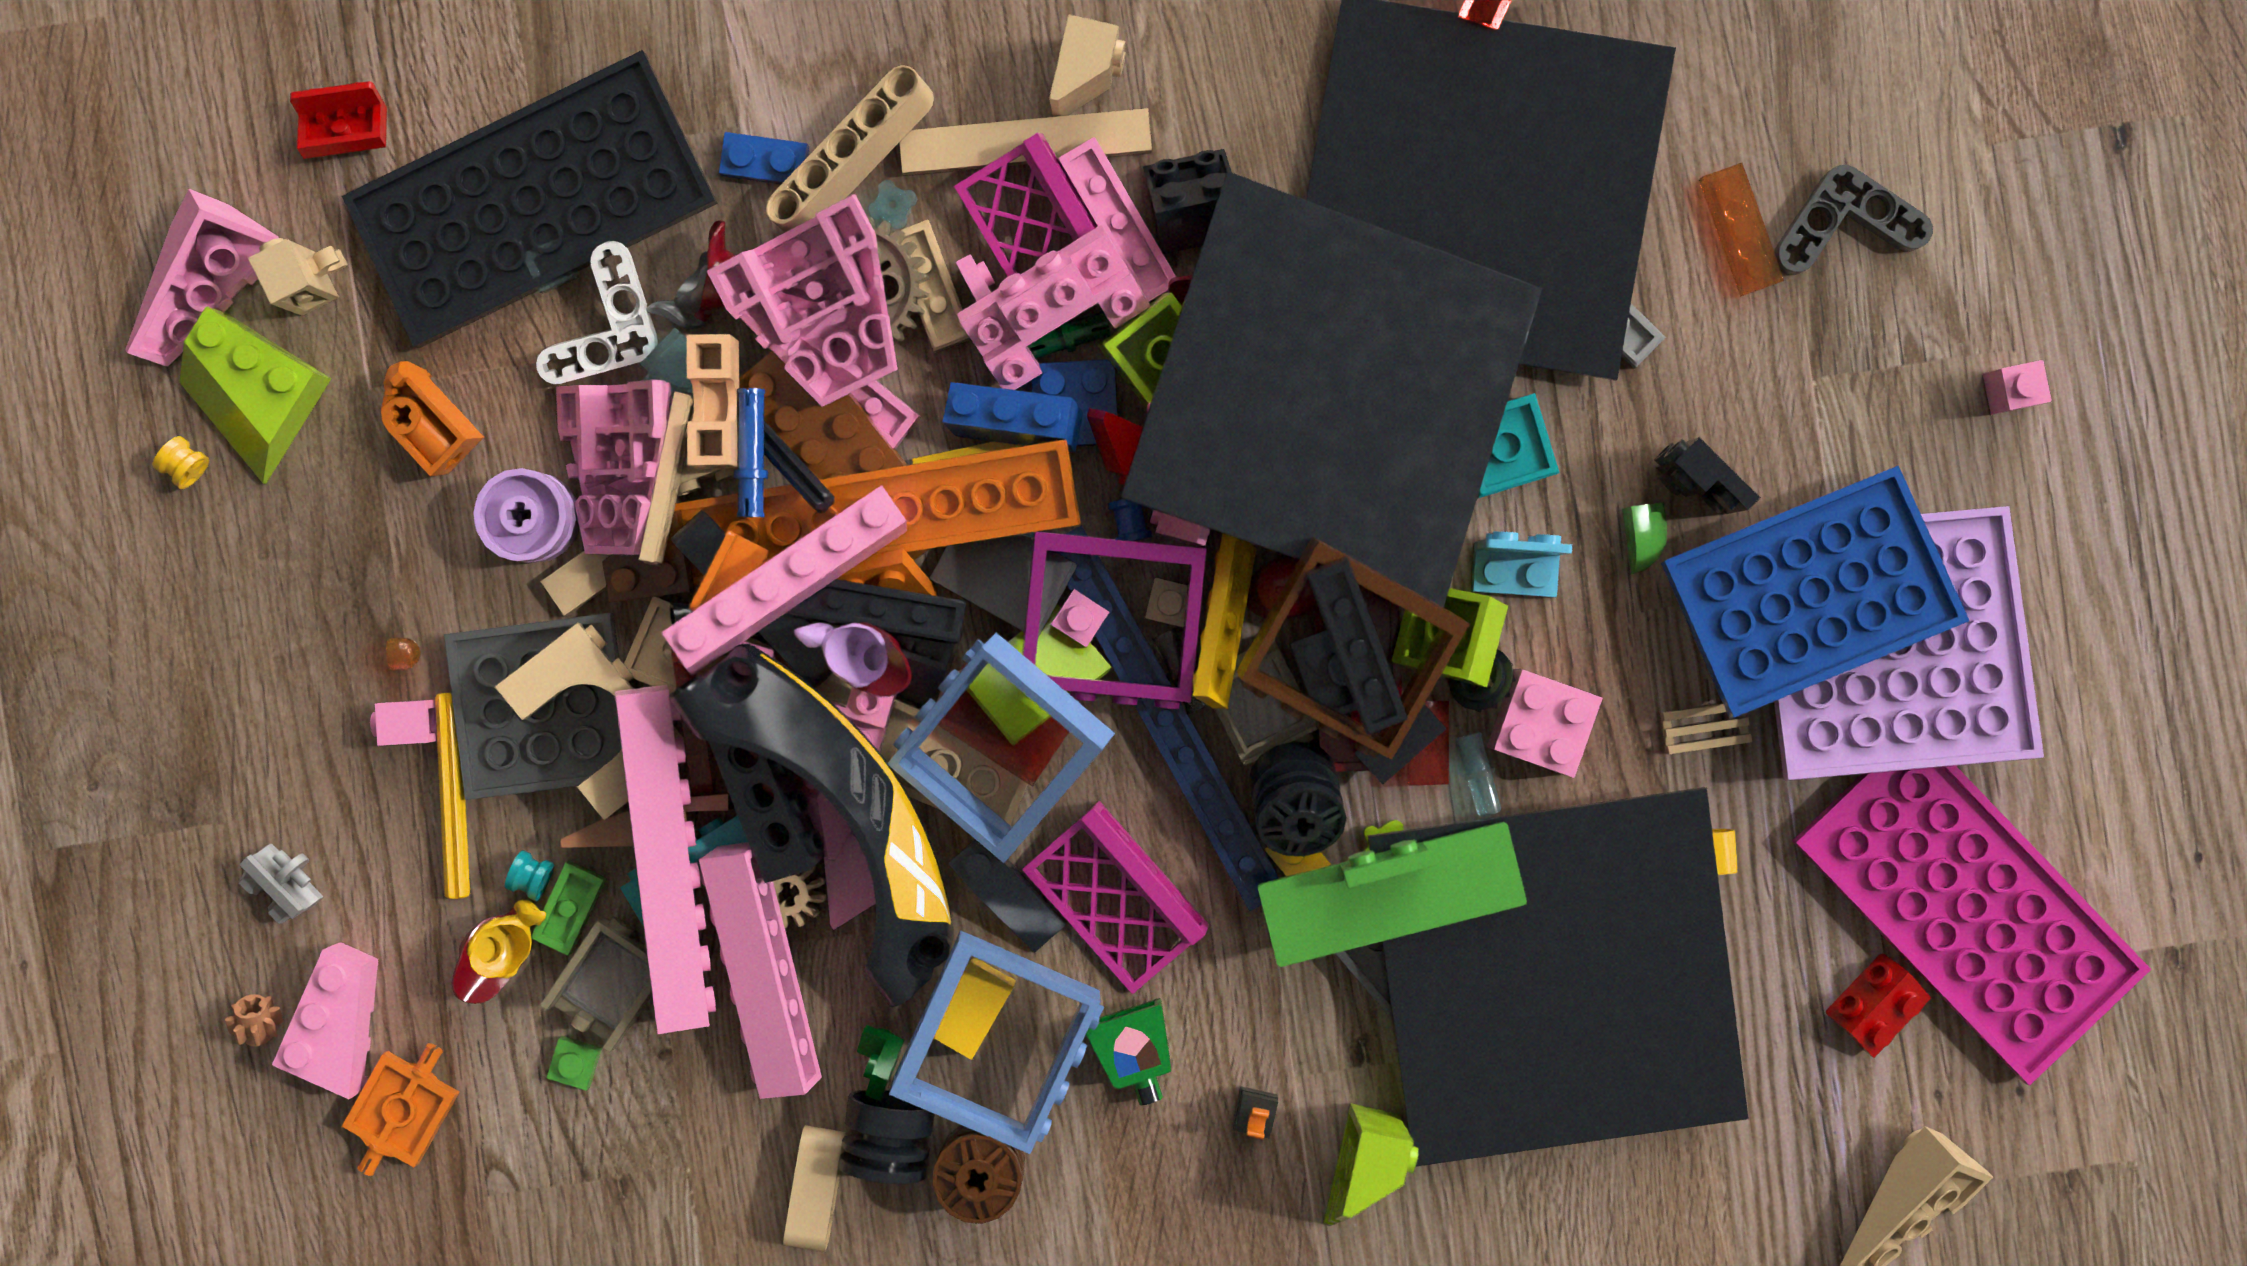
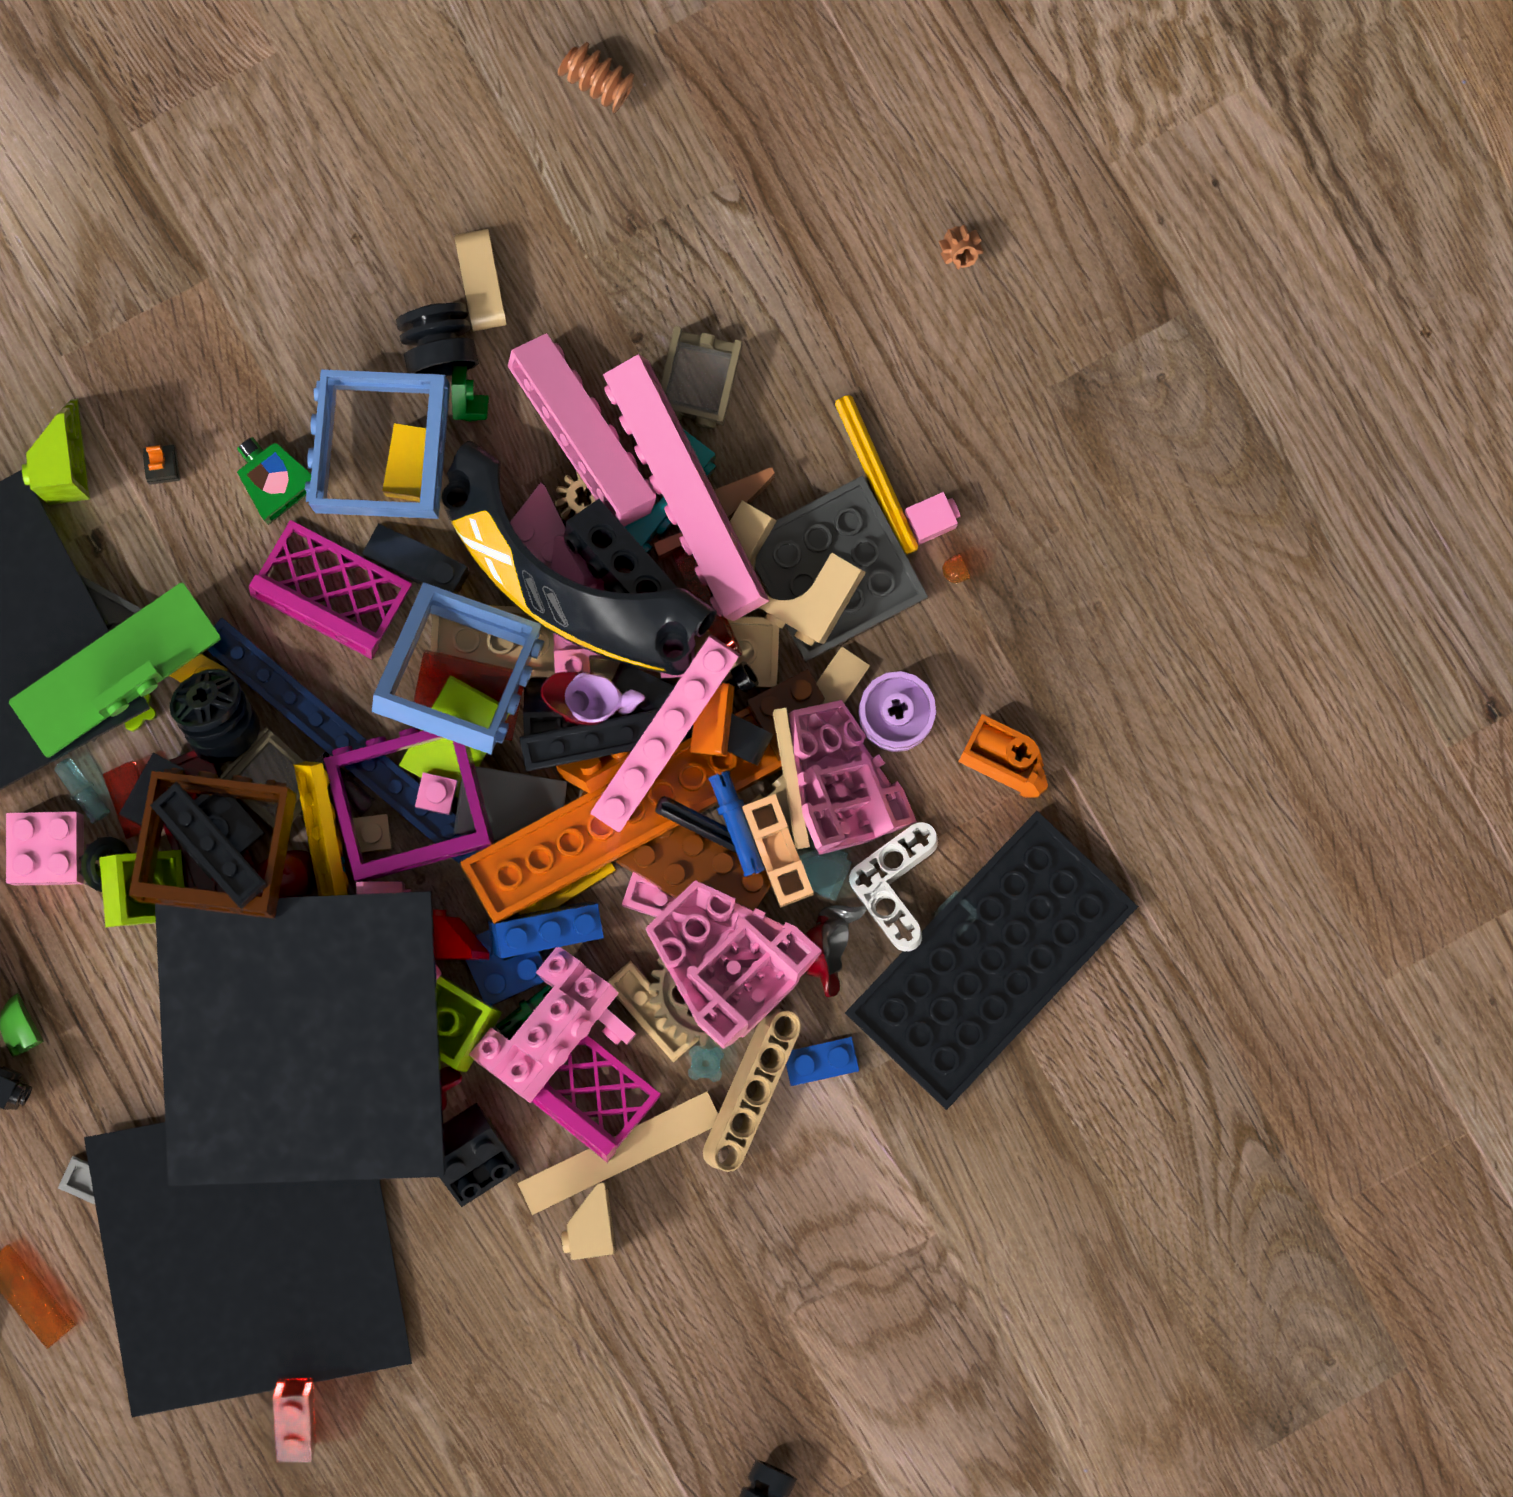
camera: 160 degrees right, 5 degrees down
(180, 462) = (1184, 652): yellow wheel -> none
(198, 267) = (1228, 813): bright pink wedge -> none
(249, 388) = (1154, 729): lime wedge -> none
(281, 880) = (982, 362): light grey hips -> none
(296, 275) = (1145, 830): tan brick -> none
(332, 1021) = (899, 264): bright pink wedge -> none
(339, 119) = (1163, 965): red bracket -> none
(400, 1109) = (823, 221): orange plate -> none
(494, 952) = (794, 369): yellow hair -> none
(529, 875) = (791, 436): teal wheel -> none
(569, 907) = (752, 422): bright green plate -> none
(574, 1063) = (704, 305): bright green plate -> none
(969, 1198) = (358, 317): reddish brown wheel -> none
(1113, 208) = (522, 1118): bright pink plate -> none
(1129, 521) = (425, 880): blue bush -> none
(1517, 566) = (109, 962): medium azure bracket -> none
(1520, 449) = (139, 1056): teal plate -> none

